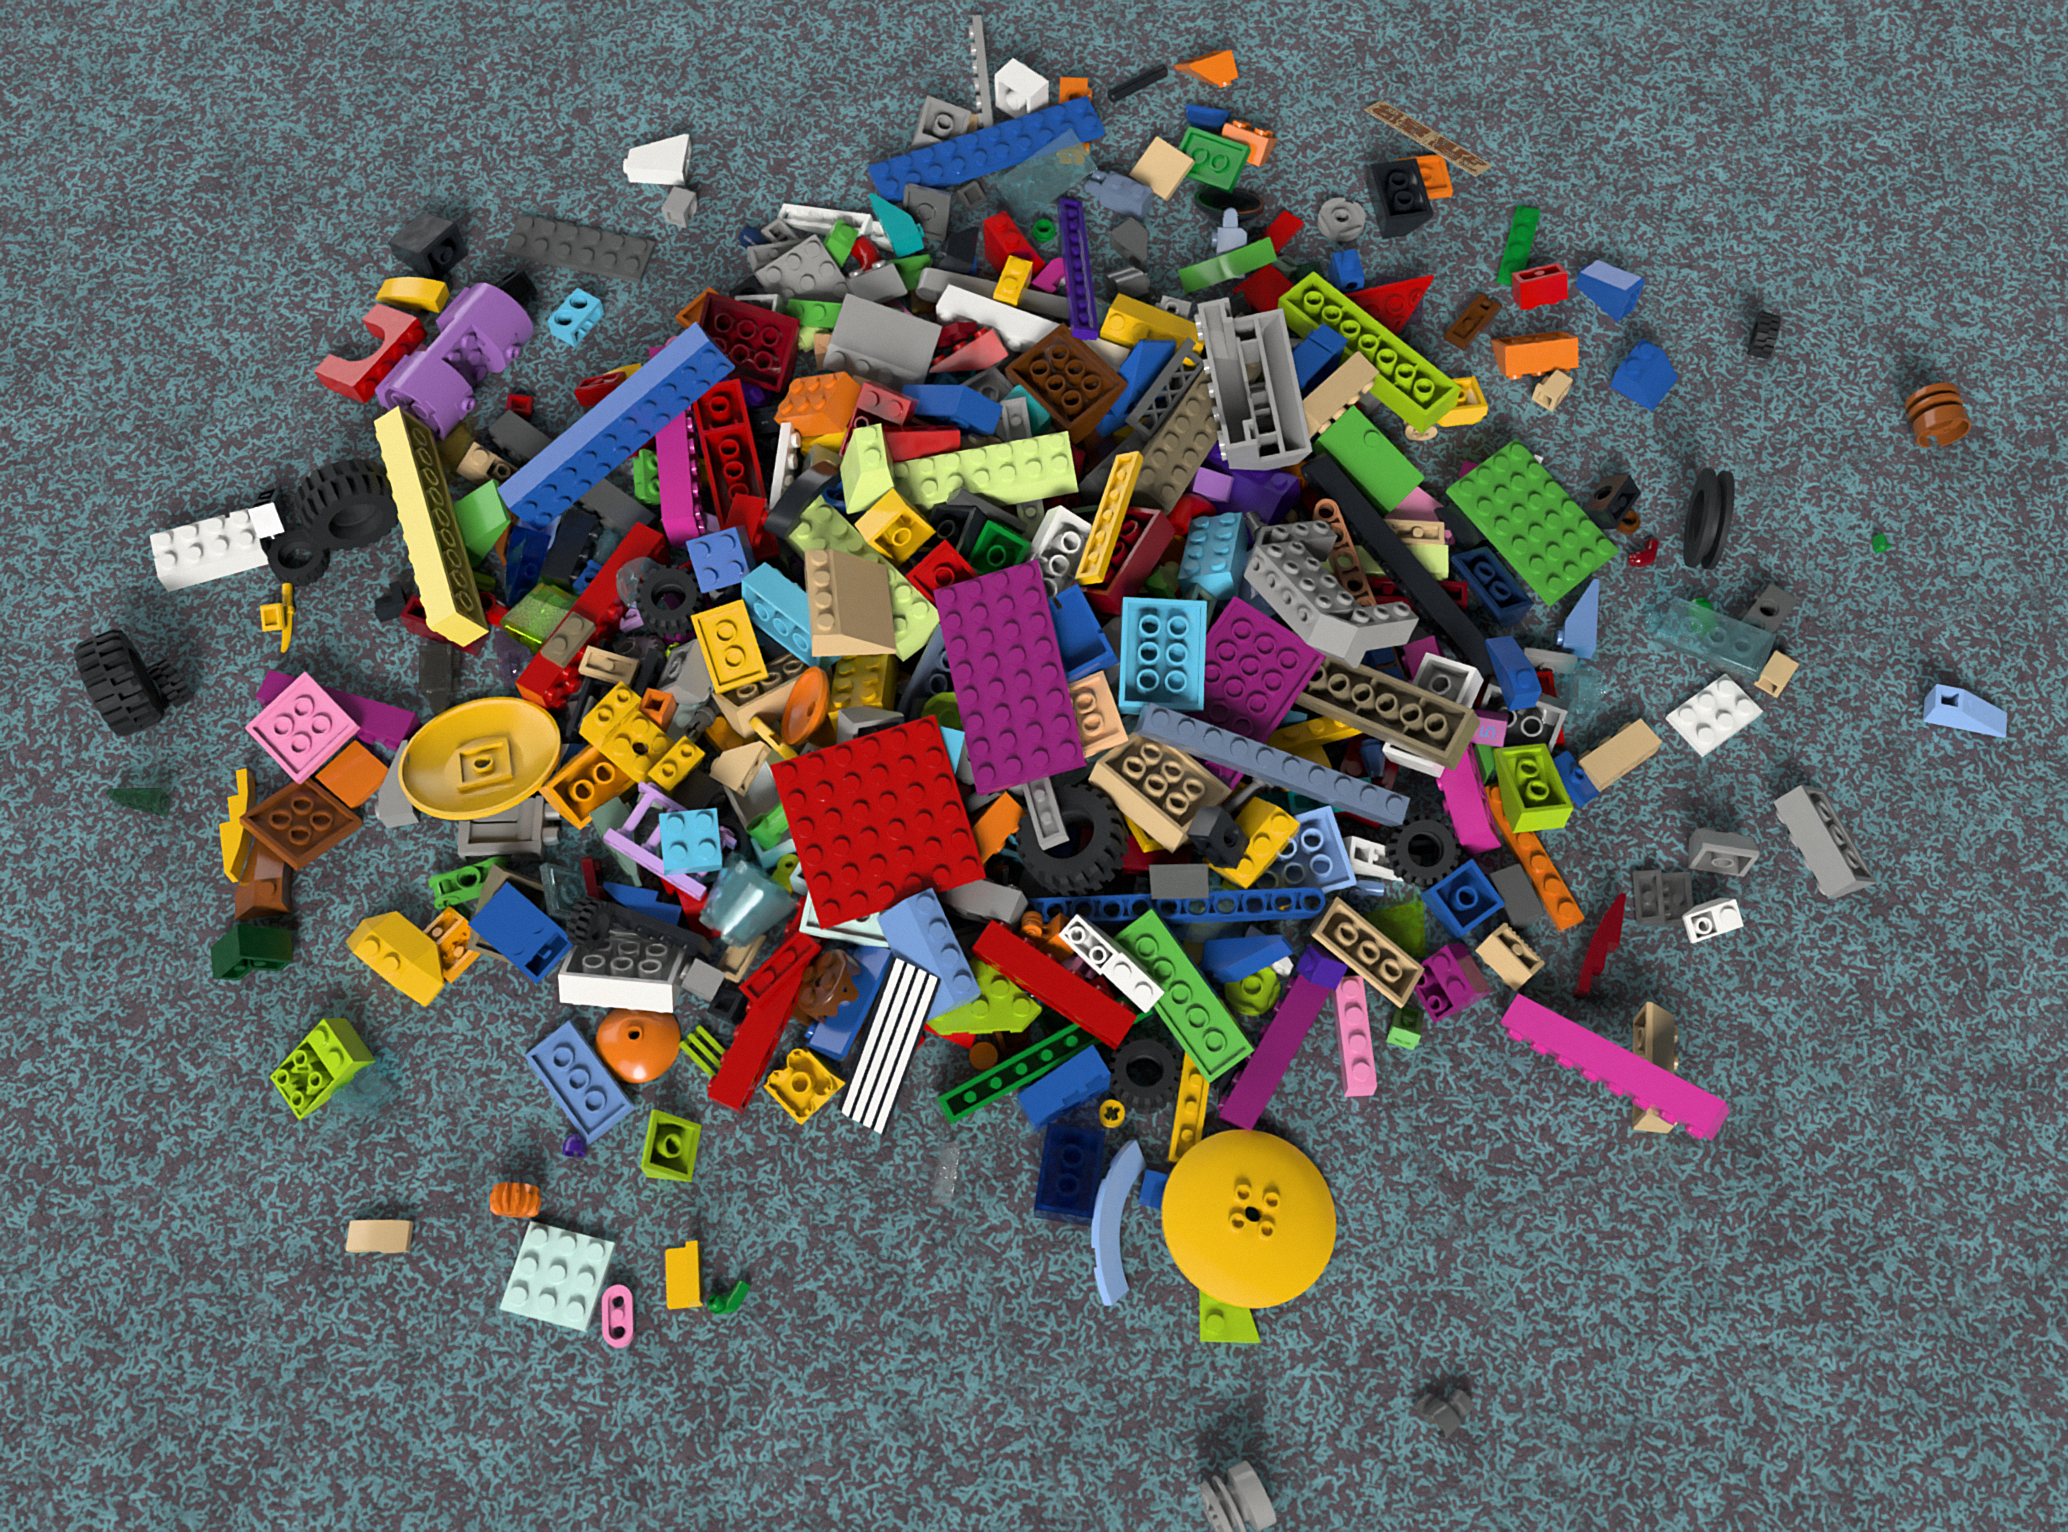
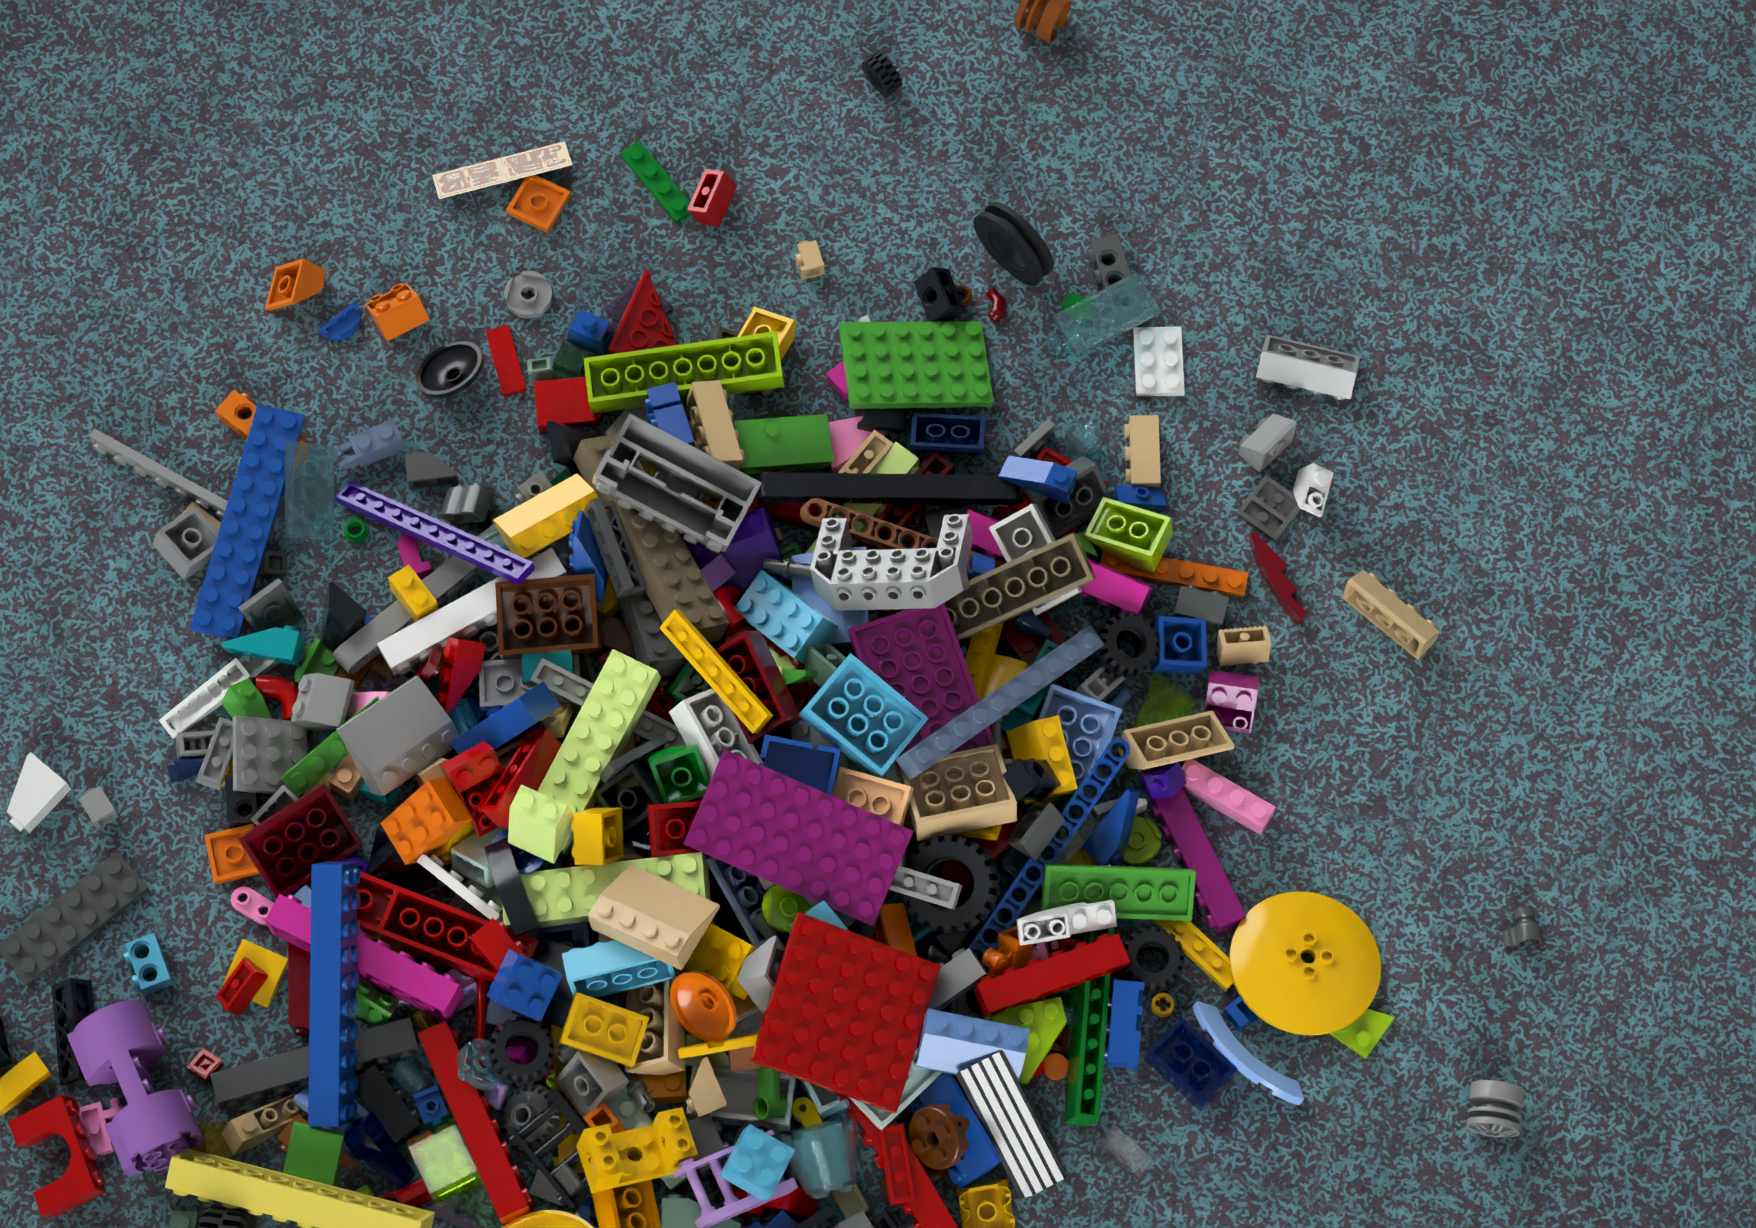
camera: 55 degrees left, 5 degrees up
(568, 640) = (493, 1153): dark tan plate -> none
(609, 666) = (542, 1136): tan plate -> none
(1005, 238) = (365, 571): red slope -> none
(1020, 90) = (207, 452): white brick -> none
(1137, 83) = (262, 352): black axle -> none
(1162, 168) = (370, 396): tan tile -> none
(1215, 158) = (395, 353): green plate -> none
(1227, 265) = (514, 415): bright green slope -> none
(1229, 236) = (497, 401): hinge -> none
(1398, 197) = (547, 237): black slope -> none
(1406, 1027) = (1244, 755): bright green slope -> none
(1472, 322) = (702, 270): reddish brown plate -> none
(1491, 729) = (1064, 523): magenta brick -> none
(1536, 353) = (766, 246): orange slope -> none
(1580, 628) = (1024, 399): medium blue slope -> none
(1610, 288) = (752, 148): blue slope -> none
(1616, 1067) = (1376, 639): dark pink brick -> none
(1645, 375) = (848, 184): blue slope -> none
(1776, 673) = (1162, 291): tan brick -> none
(1880, 543) = (1109, 136): green rock -> none
(1963, 711) = (1281, 194): light blue slope -> none

